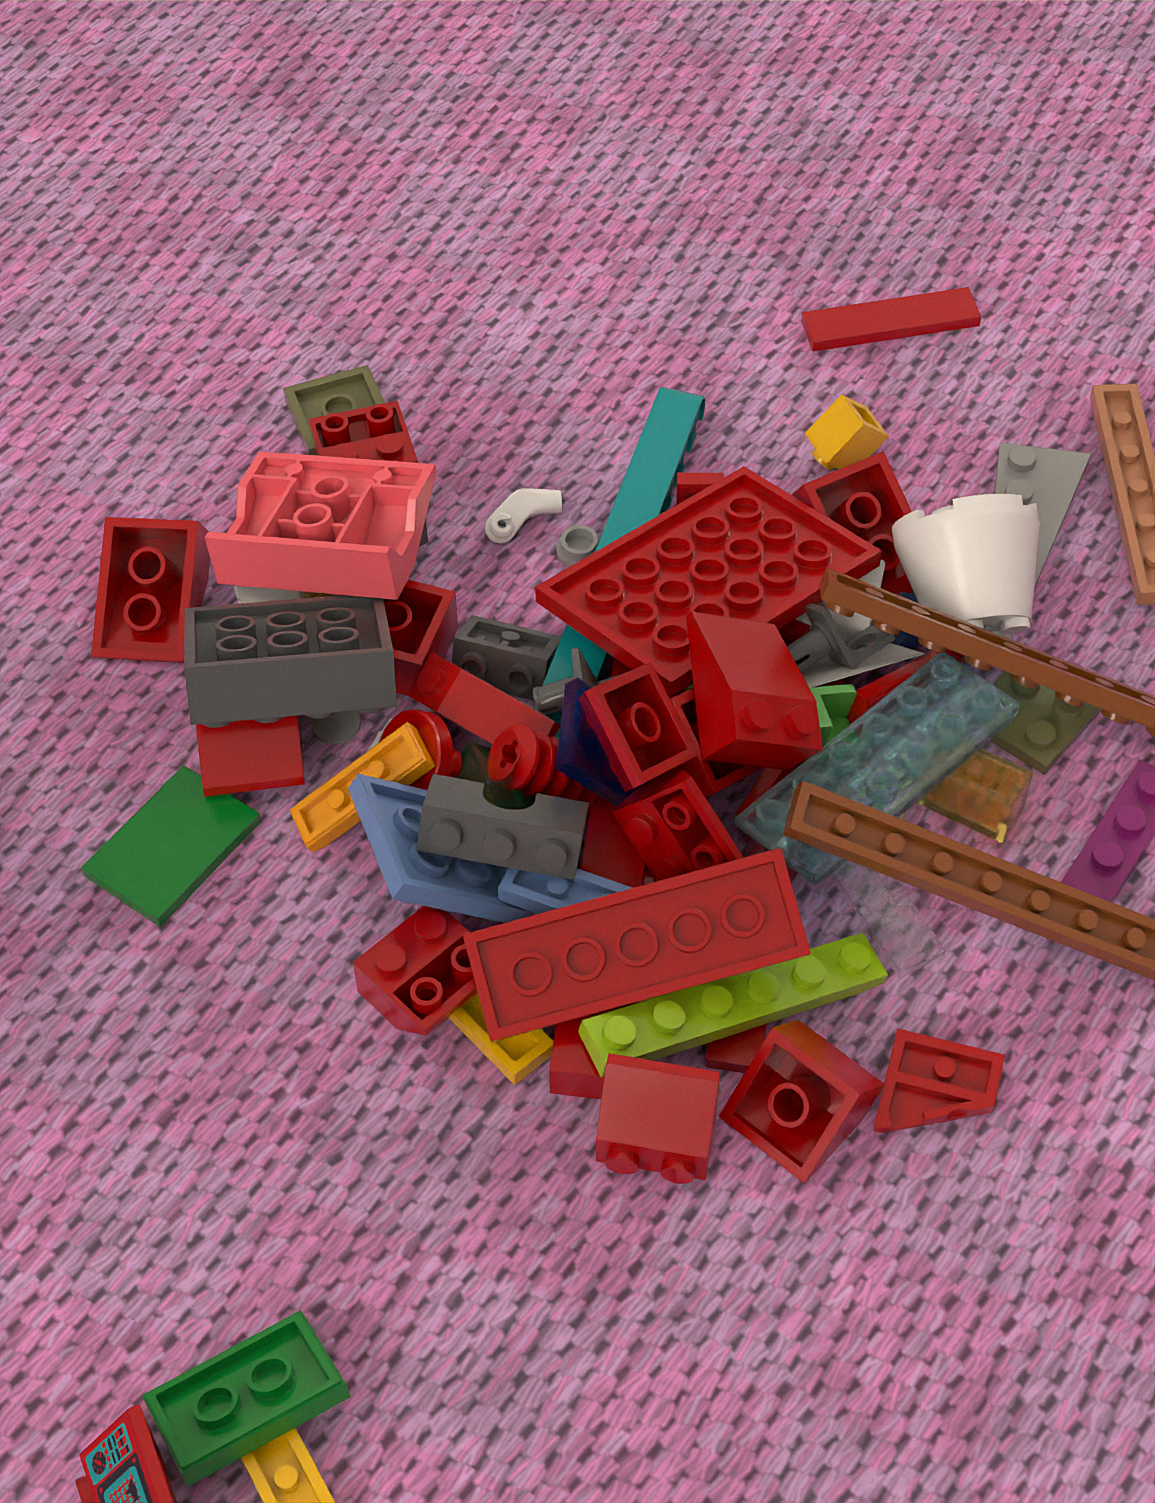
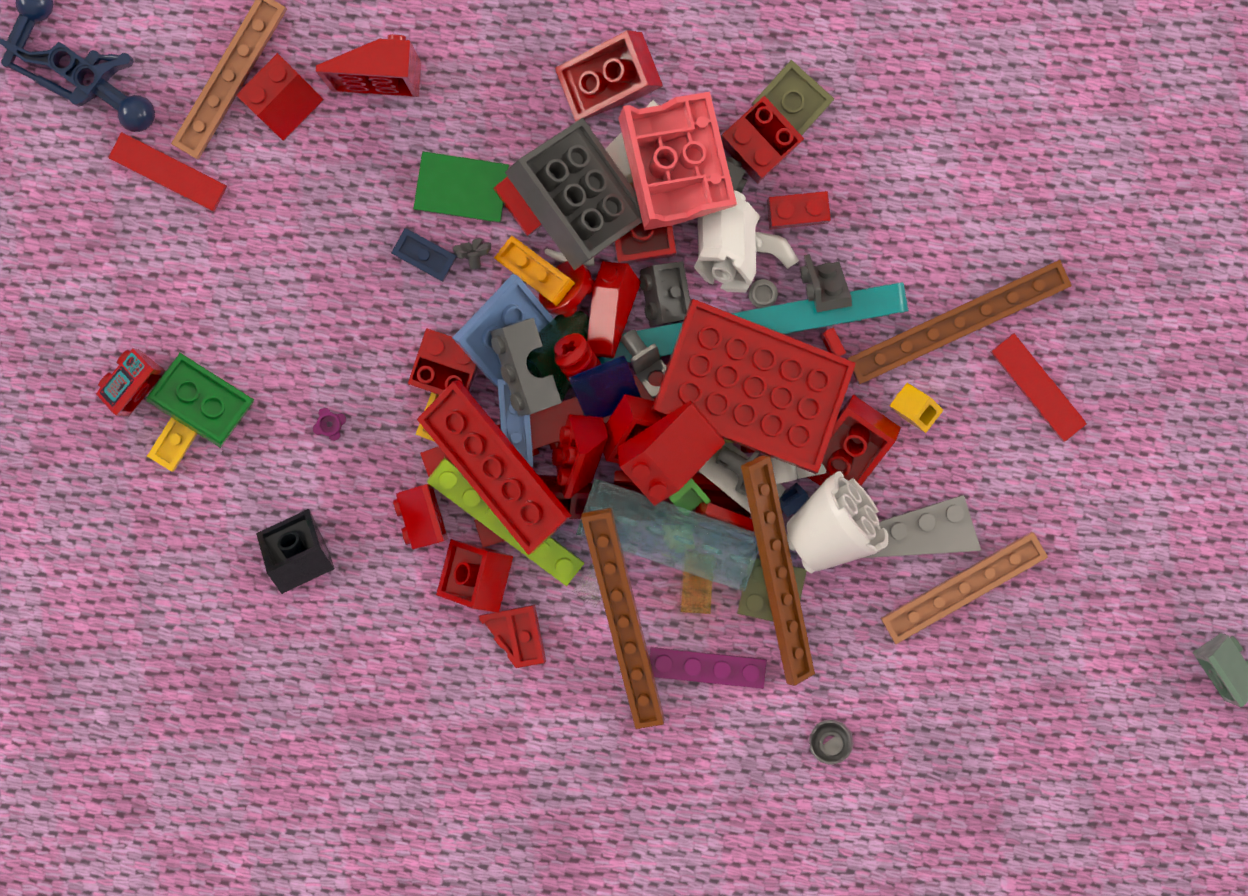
camera: 65 degrees right, 35 degrees up
(237, 936) = (424, 254): none -> dark blue plate
(281, 868) = (472, 252): none -> dark grey plant
(417, 1193) = (321, 426): none -> magenta plate
(487, 541) = (728, 246): none -> white brick
(489, 456) = (798, 210): none -> red brick
(608, 1367) = (294, 551): none -> black slope
(610, 460) = (825, 285): none -> dark grey bracket
(637, 726) = (606, 408): red slope -> none
(753, 354) = (960, 321): none -> dark orange plate

